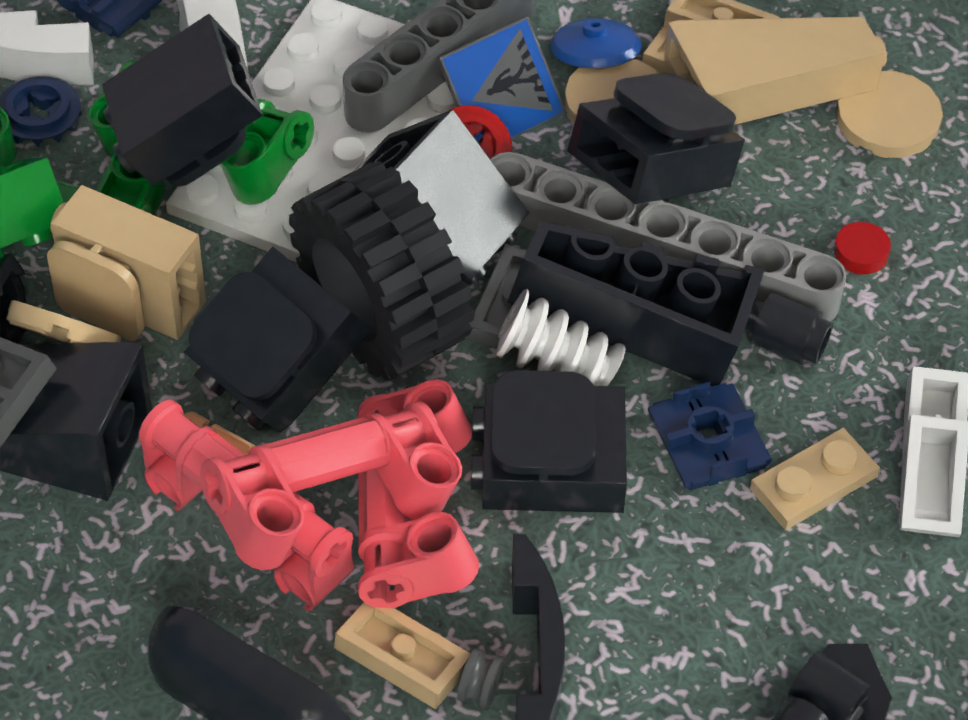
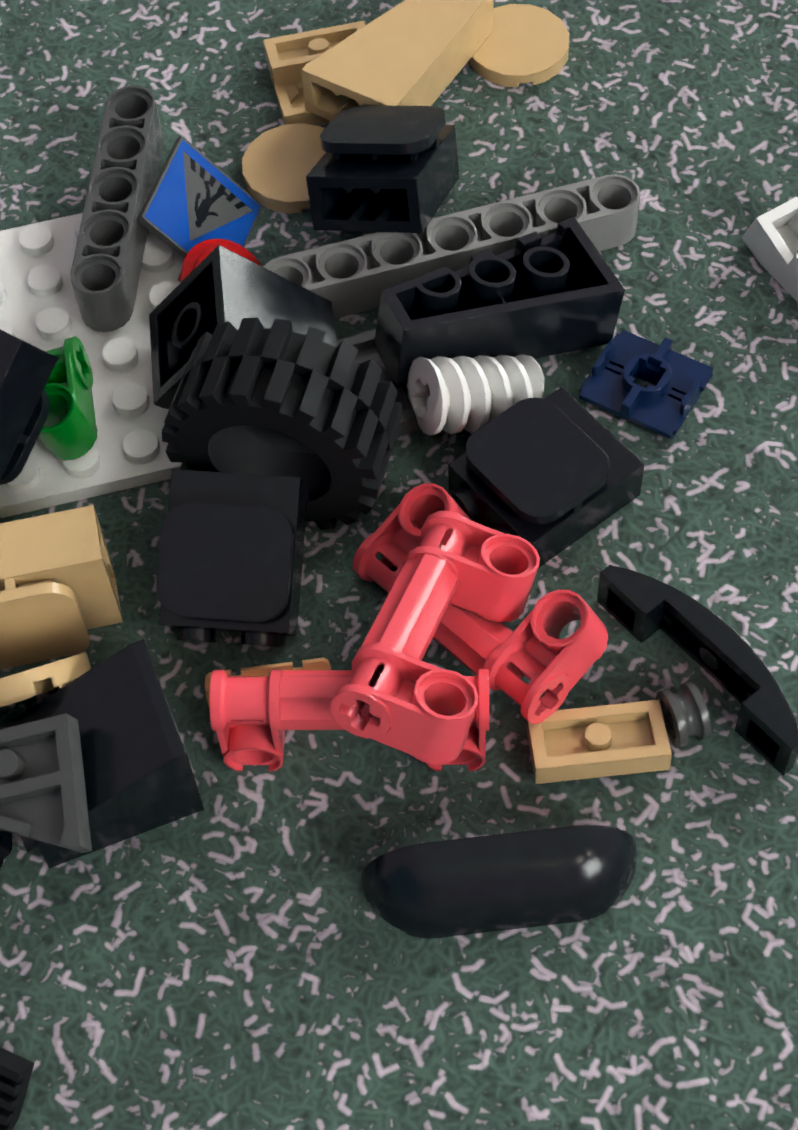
camera: 35 degrees left, 5 degrees up
(595, 43) = (236, 133): blue piece -> none
(789, 329) = (632, 252): black brick -> none
(814, 478) = (755, 361): tan plate -> none
(862, 247) = (604, 156): red tile -> none

